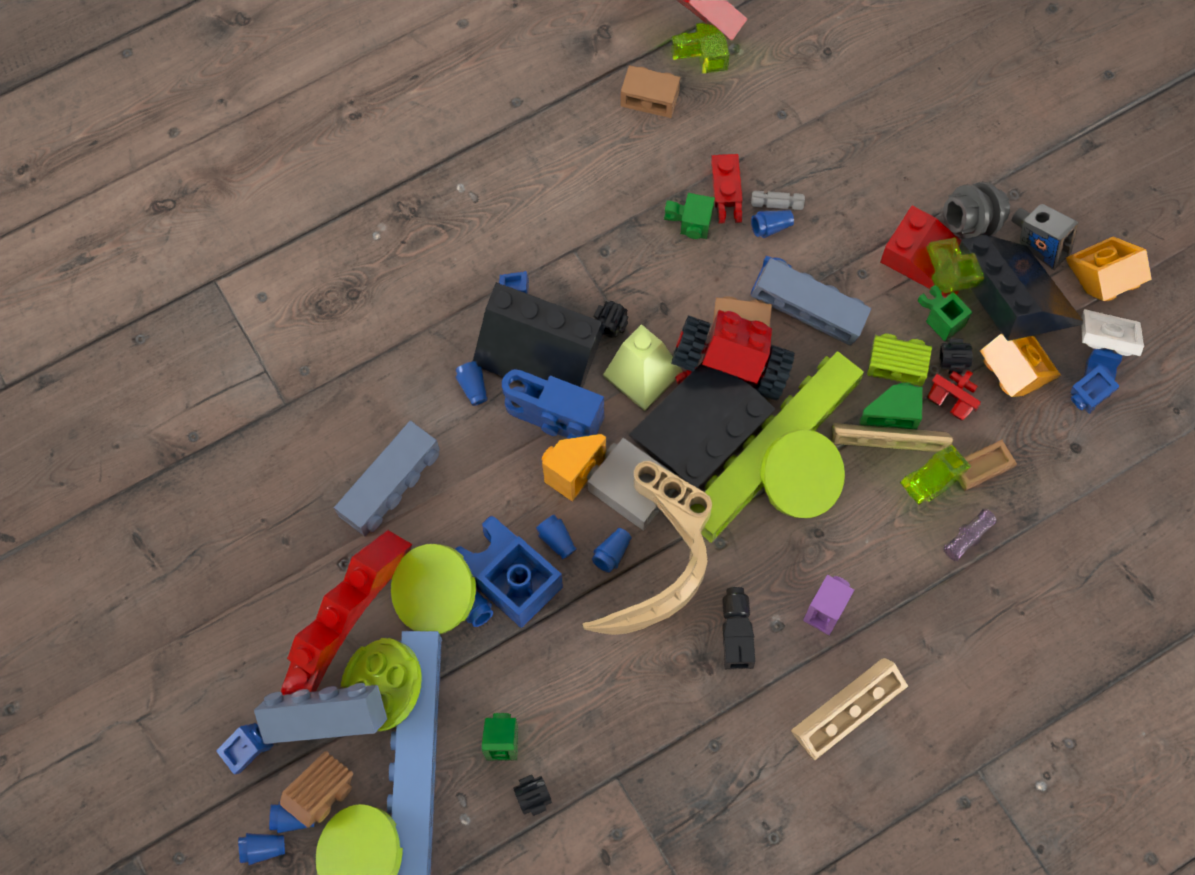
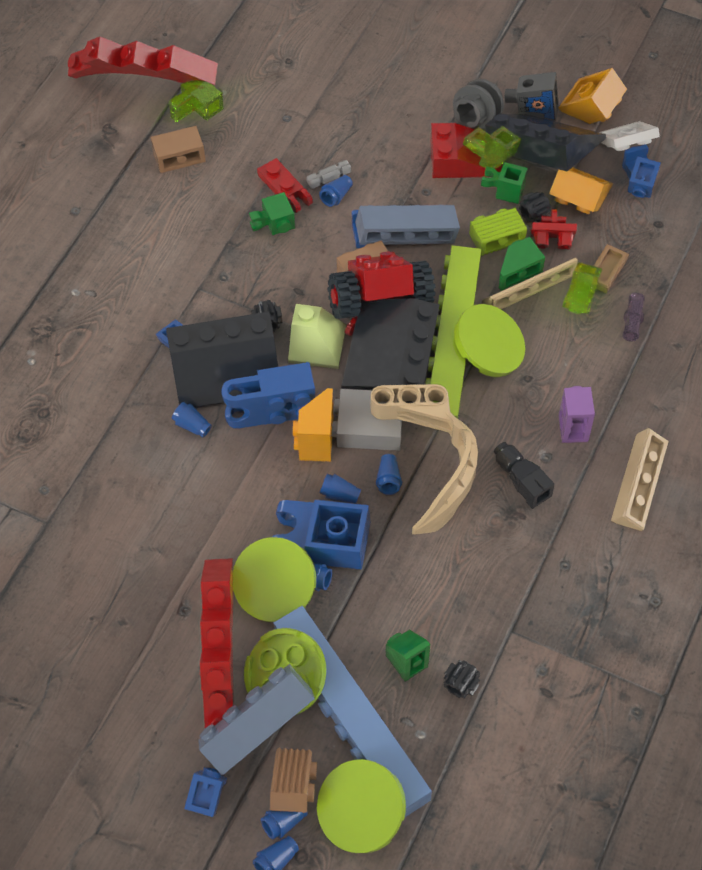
camera: 35 degrees left, 10 degrees down
(387, 479) = (175, 525): sand blue brick -> none

